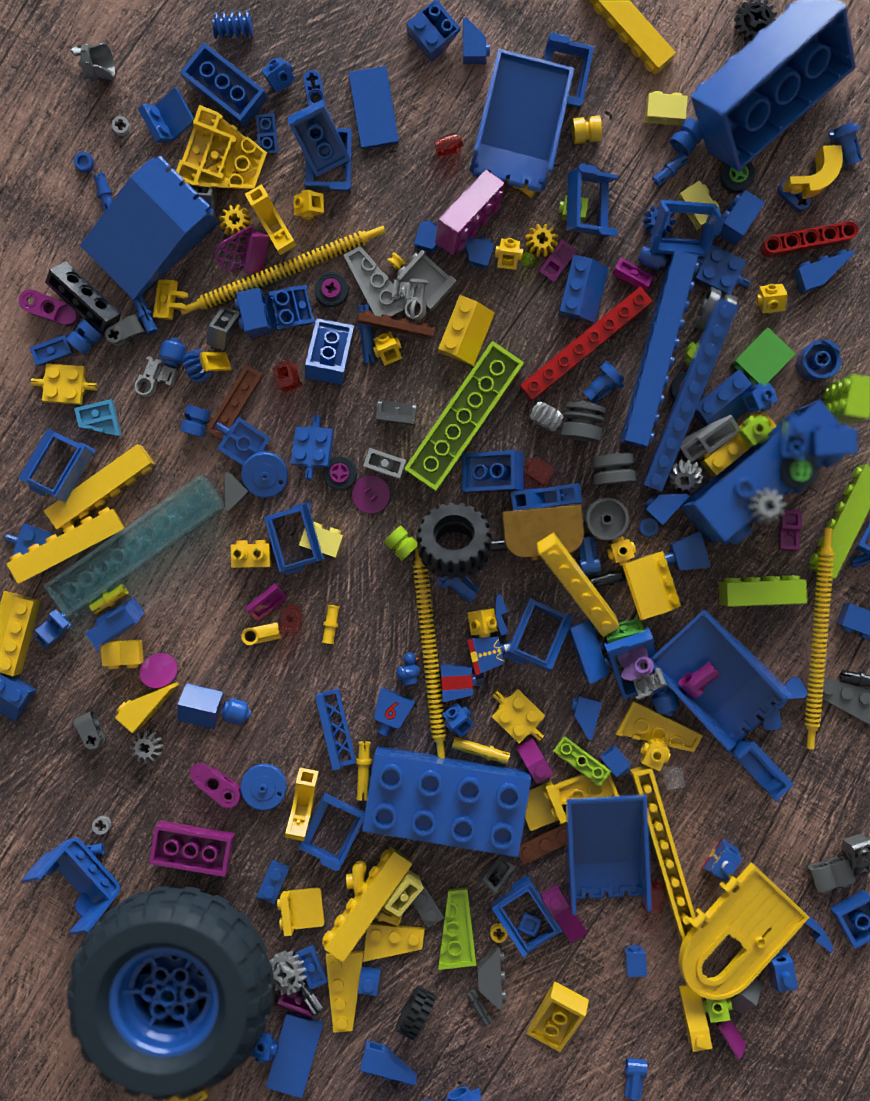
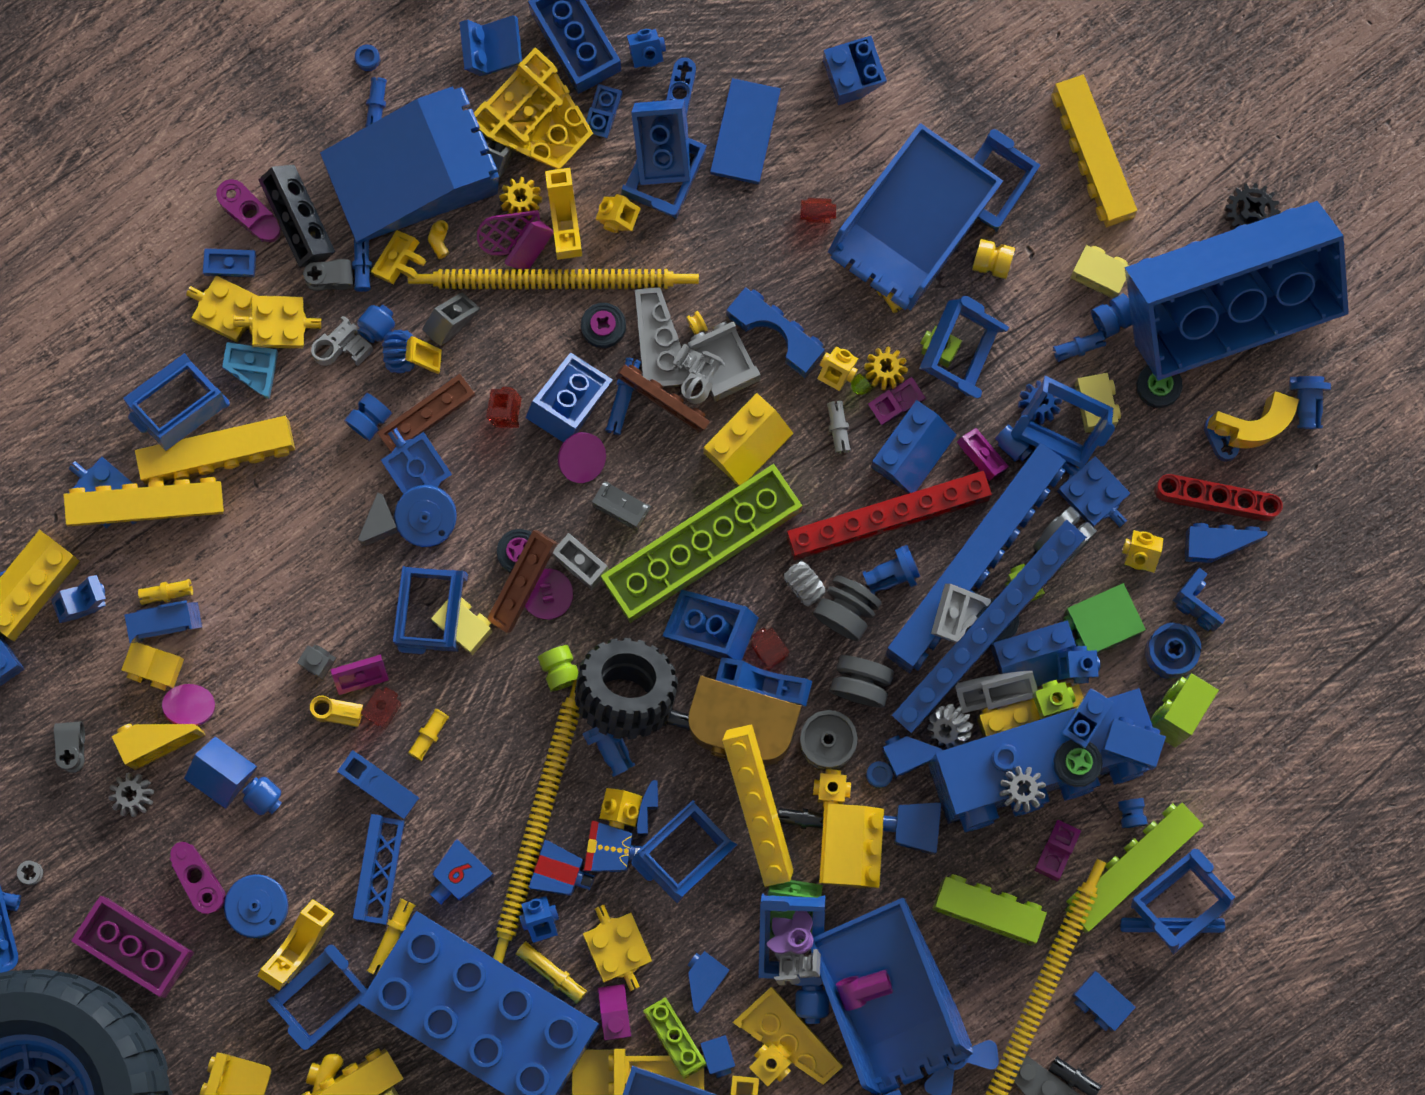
camera: 25 degrees right, 10 degrees down
(84, 337) = (277, 262): blue wheel -> none
(103, 379) = (277, 322): none -> yellow plate
(116, 121) = (428, 25): light grey bush -> none
(135, 545) = (228, 538): clear light blue brick -> none
(188, 273) = (436, 238): none -> yellow arm
(233, 605) = (316, 661): none -> dark grey brick
(251, 554) = (367, 608): yellow brick -> none
(254, 313) = (496, 315): blue brick -> none
(273, 881) = (215, 1035): blue plate -> none
(289, 307) = (542, 327): blue slope -> none
(310, 672) = (378, 784): none -> blue slope
(312, 447) = (499, 506): blue plate -> none
(350, 493) = (522, 581): none -> copper plate
(355, 389) = (581, 457): none -> magenta piece
(387, 348) = (641, 422): yellow brick -> none
(409, 673) = (501, 836): blue animal -> none
(469, 212) = (807, 300): brick -> none
(474, 44) = (897, 105): blue slope -> none
(525, 295) = (838, 427): none -> light grey pin
(589, 561) = (787, 785): blue piece -> none
(589, 650) = (741, 897): blue slope -> none
(664, 395) = (957, 612): none -> light grey wing
(740, 216) = (1139, 436): blue brick -> none
(816, 321) = (1188, 603): none -> blue bracket
(832, 484) = (1132, 813): none -> blue wheel

